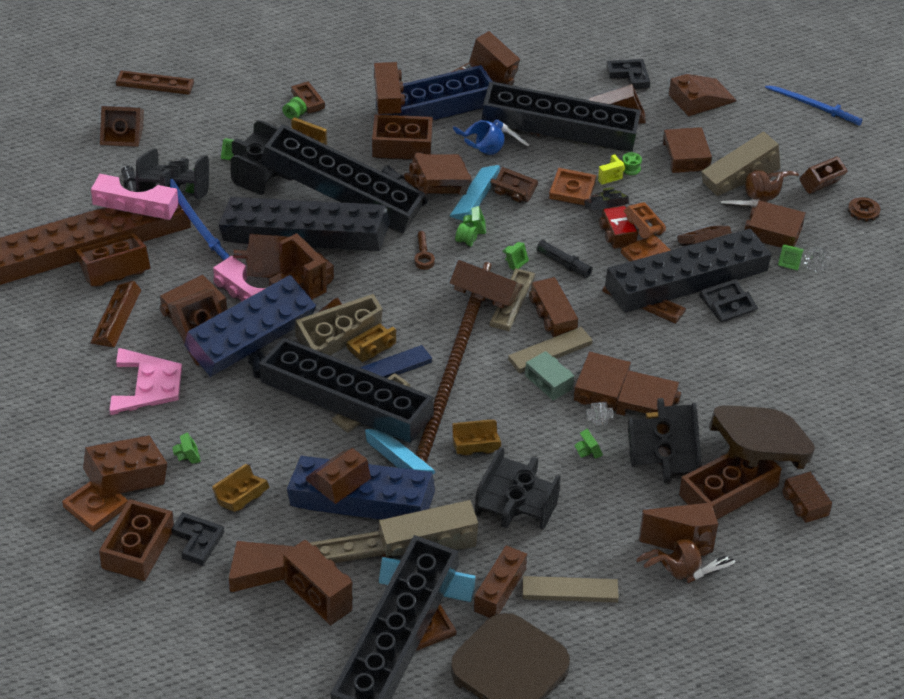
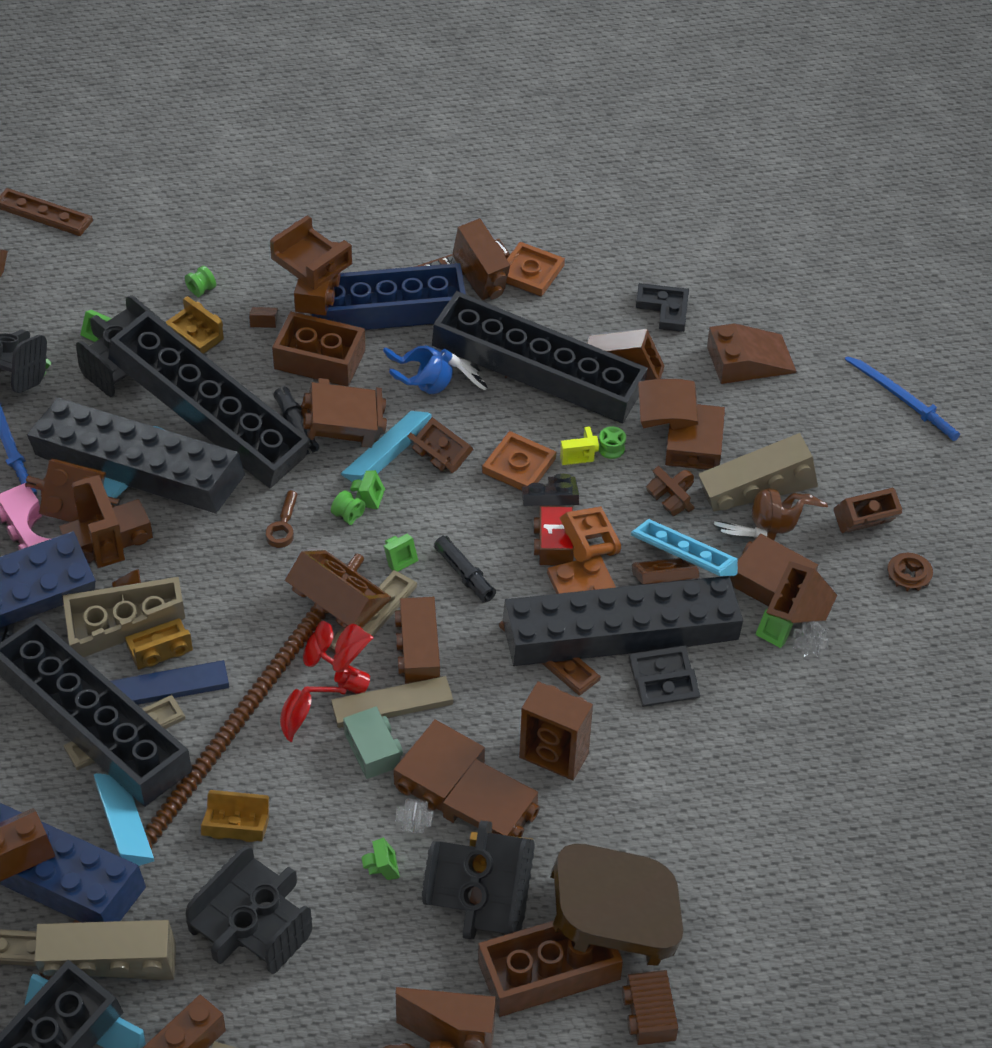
camera: 15 degrees right, 5 degrees up
(309, 96) = (225, 267): reddish brown plate -> none
(350, 125) = (263, 317): none -> reddish brown slope
(379, 71) = (309, 253): none -> reddish brown panel
(519, 312) = (348, 646): none -> red plant
(531, 64) = (533, 268): none -> dark orange plate
(664, 129) = (668, 402): none -> reddish brown slope
(677, 340) = (555, 730): none -> reddish brown brick
(687, 184) = (675, 487): none -> reddish brown hips
(714, 217) = (686, 548): none -> medium azure slope
(805, 229) = (802, 596): none -> reddish brown slope

